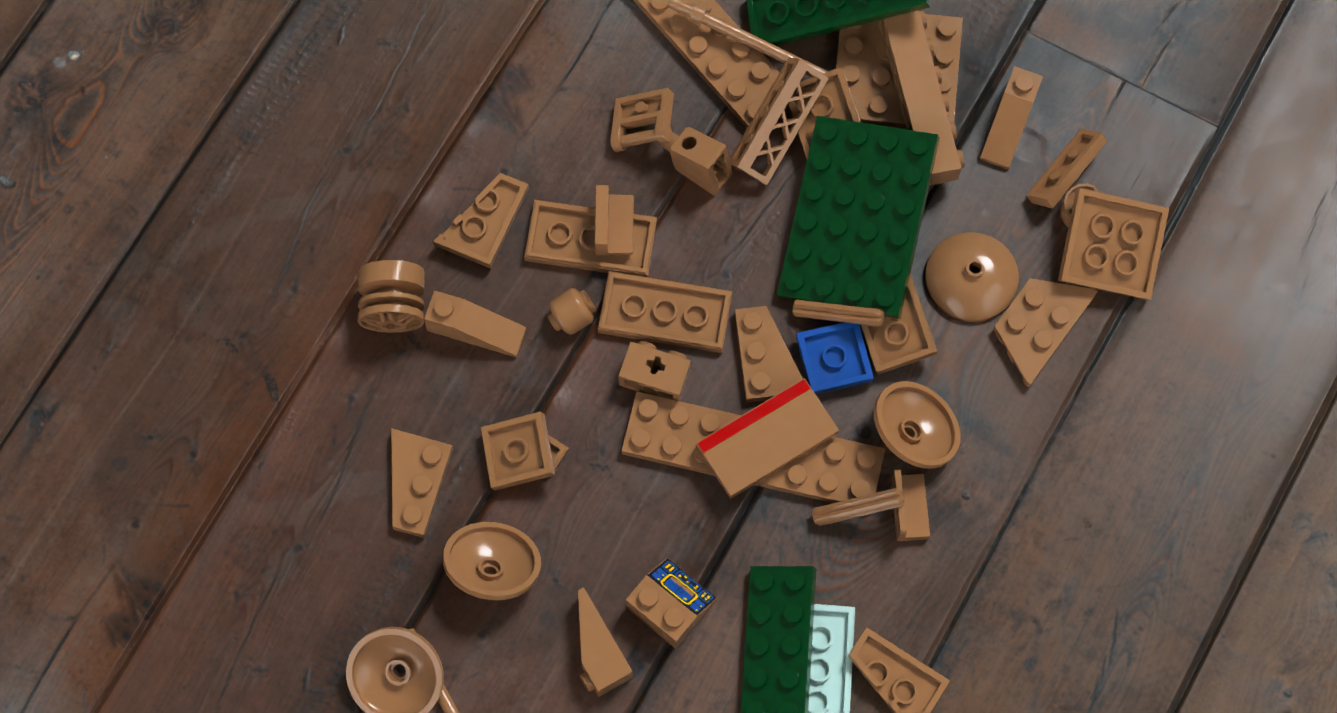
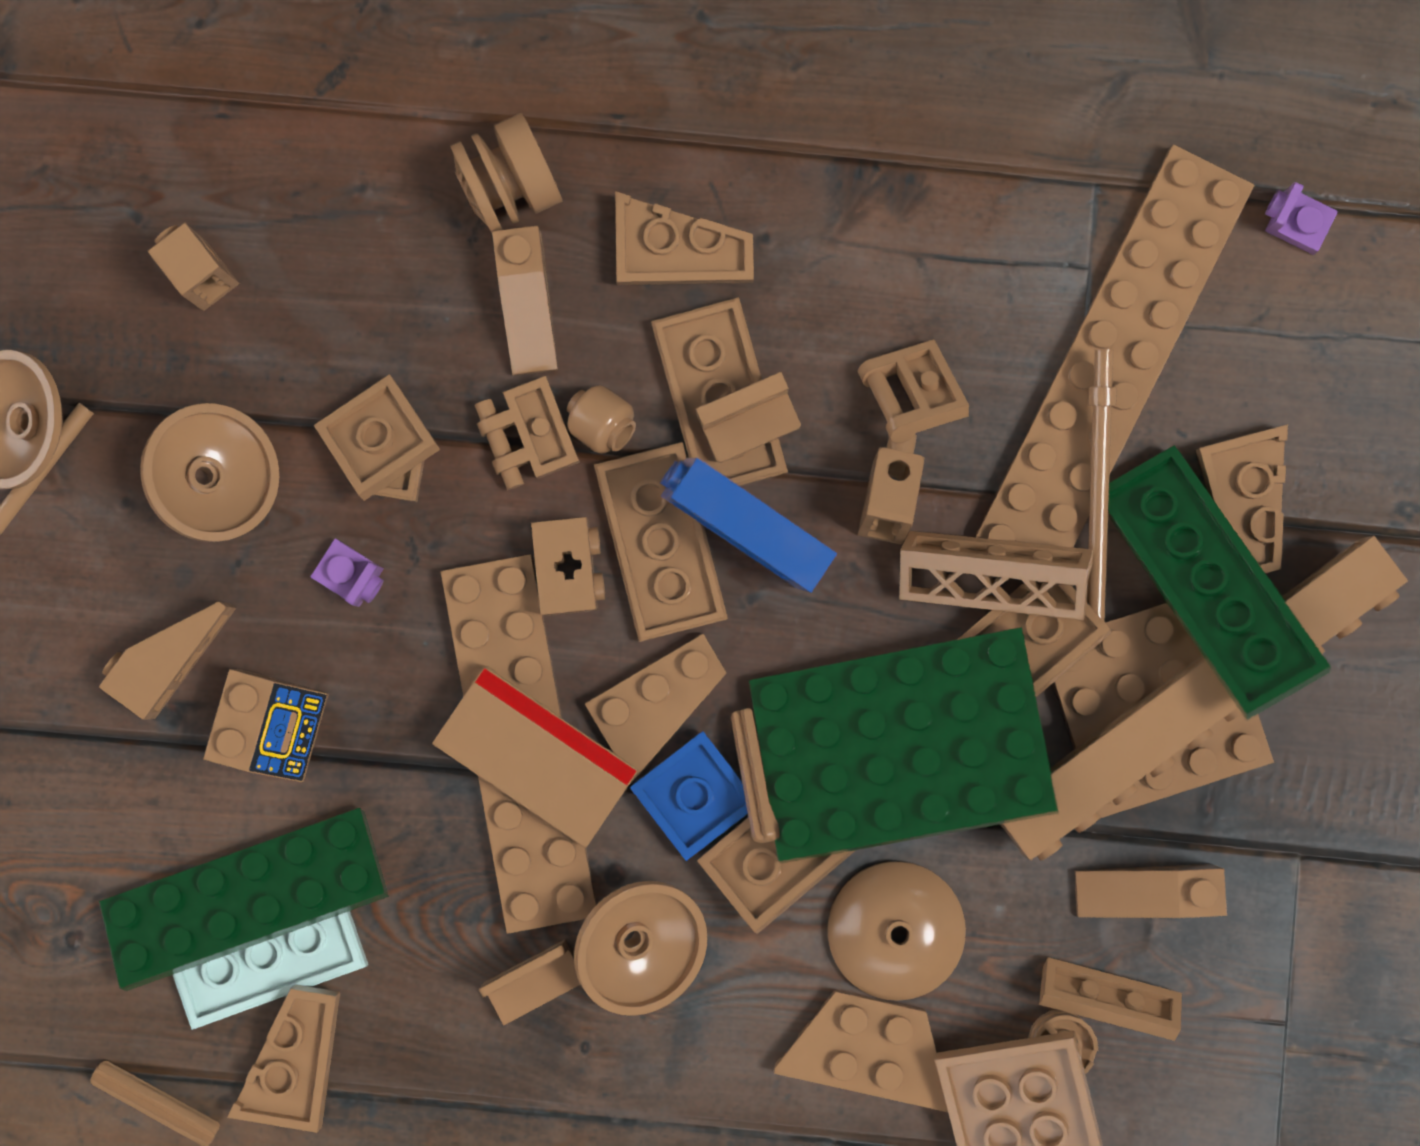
camera: 70 degrees right, 15 degrees up
(353, 513) = (192, 266): none -> medium nougat brick
(416, 480) = (288, 324): medium nougat wing -> none
(559, 351) = (540, 429): none -> medium nougat plate
(597, 509) = (349, 574): none -> medium lavender bracket
(680, 245) = (746, 523): none -> blue piece
(858, 506) = (493, 918): medium nougat axle -> none

